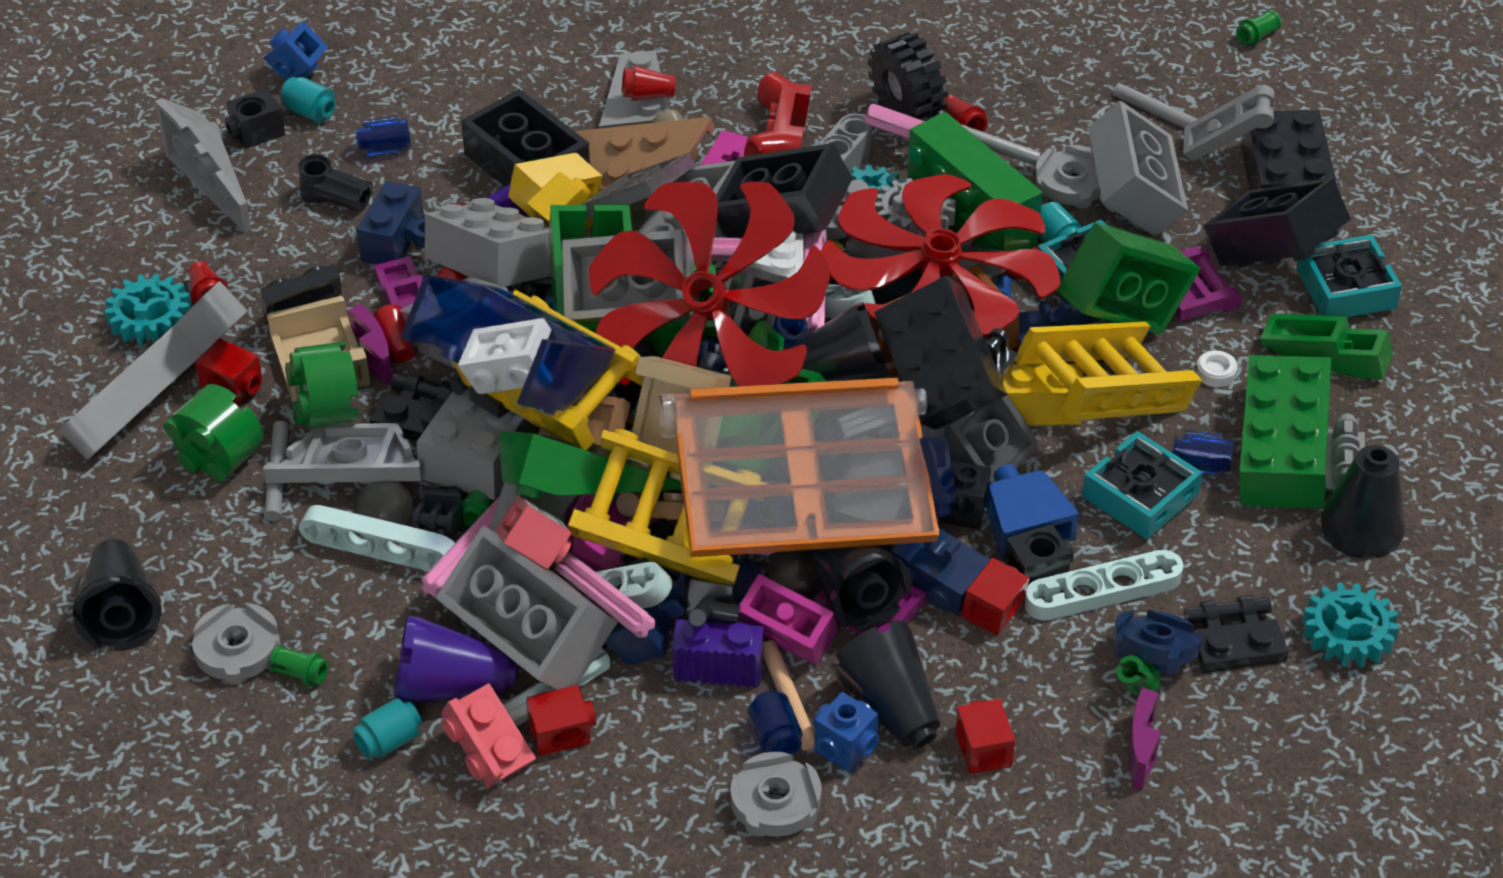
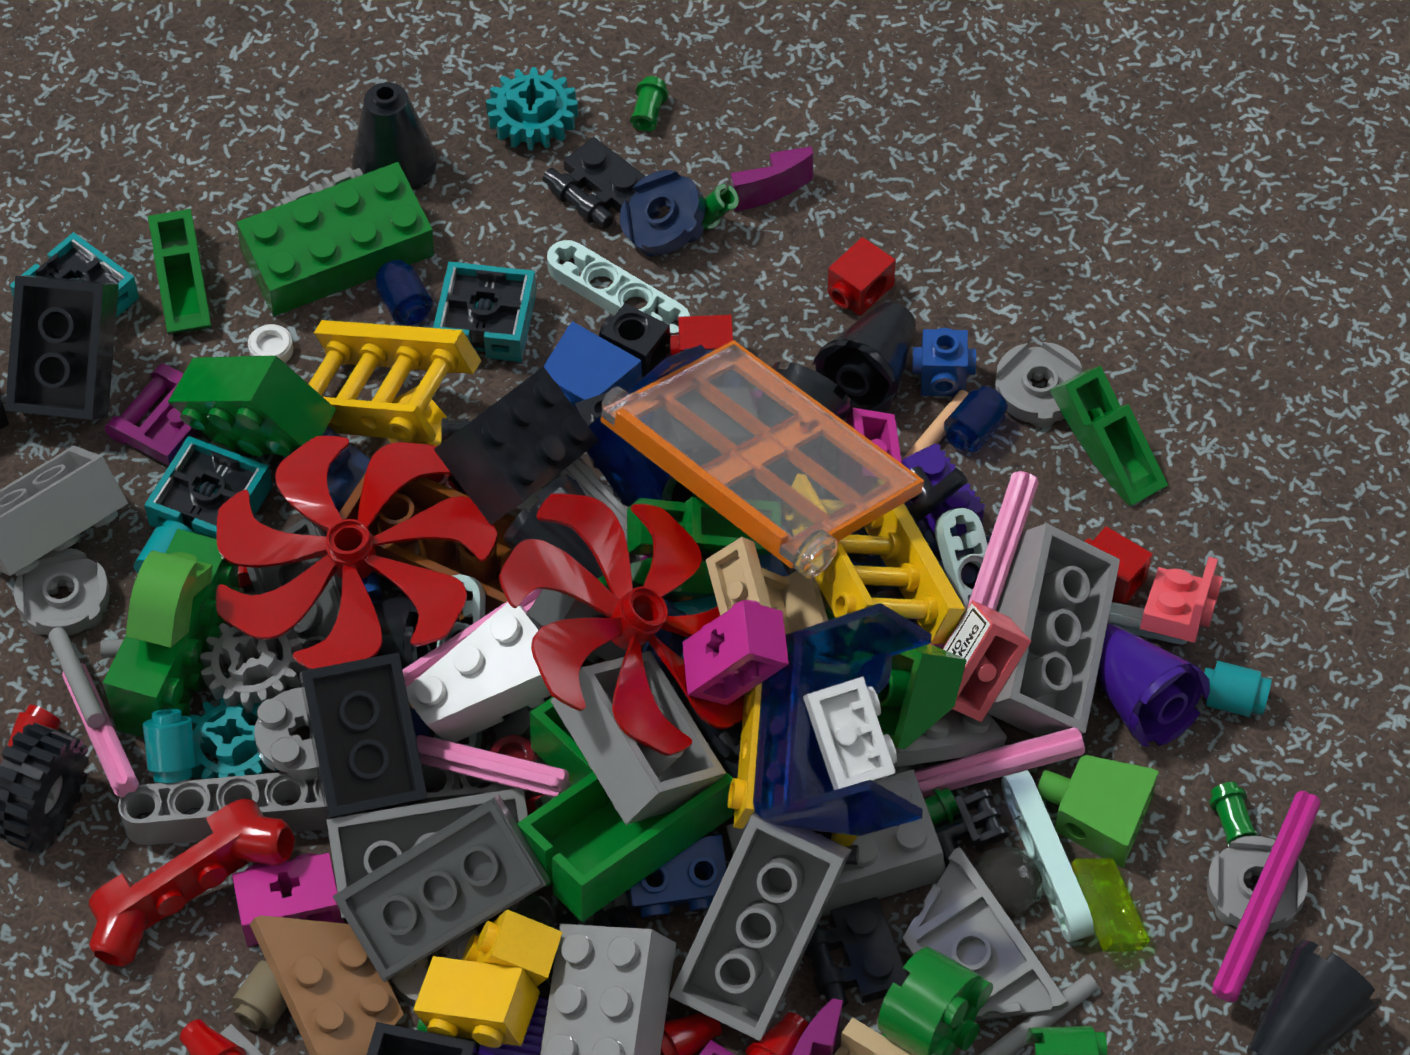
camera: 125 degrees left, 10 degrees up
(215, 623) = (1265, 897): none -> dark pink axle
(310, 550) = (1110, 905): none -> clear neon green tile
(379, 589) = (1101, 804): none -> bright green torso
(624, 320) = (735, 652): none -> dark pink brick
(681, 796) = (1109, 435): none -> green slope
(881, 145) = (169, 746): none -> teal brick
(977, 138) = (164, 597): none -> bright green brick
(1302, 710) = (651, 94): none -> green pin

